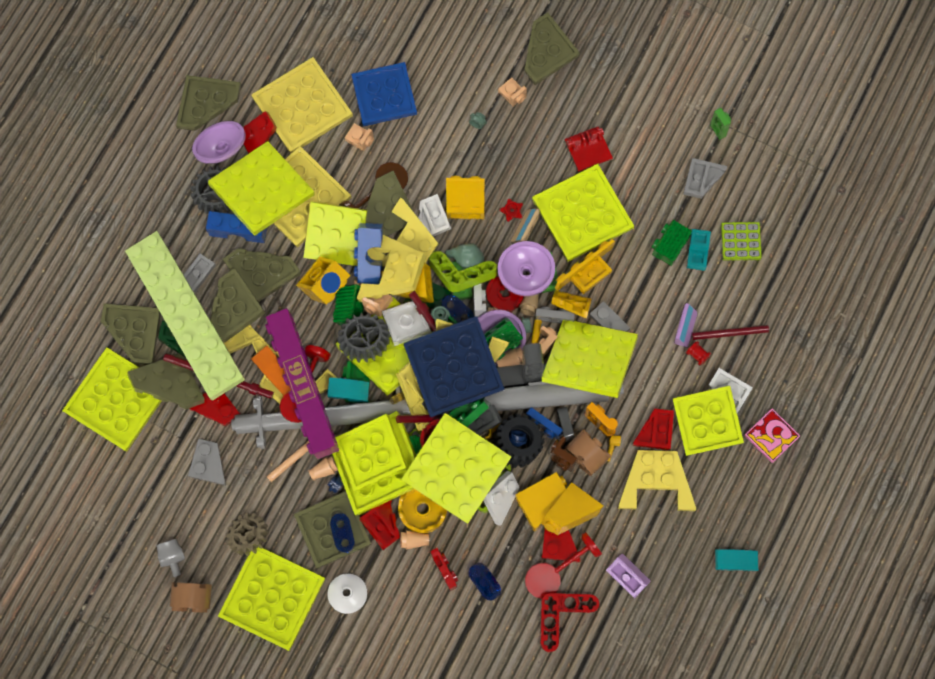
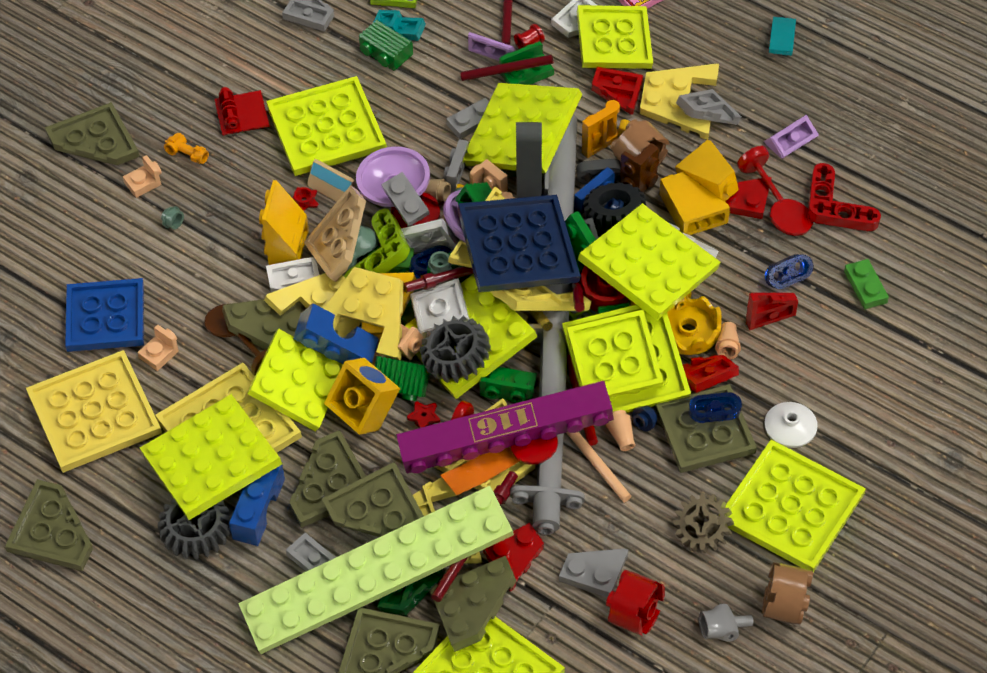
camera: 85 degrees left, 20 degrees down
(174, 492) = (635, 602): none -> red brick
(219, 142) = (124, 507): lavender dish -> none
(259, 131) = (123, 466): red wing -> none
(323, 332) = (429, 410): none -> red plate
(348, 389) = (519, 383): teal slope -> none
(461, 236) = (336, 235): none -> tan plate
(484, 644) = (866, 284): none -> bright green plate
(500, 280) = (405, 199): none -> light grey plate
(548, 107) = (178, 143): none -> light orange bar
(572, 303) = (445, 142): yellow wing -> none
(590, 271) = (404, 122): yellow bracket -> none
(643, 503) = (708, 106): none -> light grey wing
(659, 339) = (507, 67): none -> dark red bar
(668, 355) = (530, 75): none -> green bracket

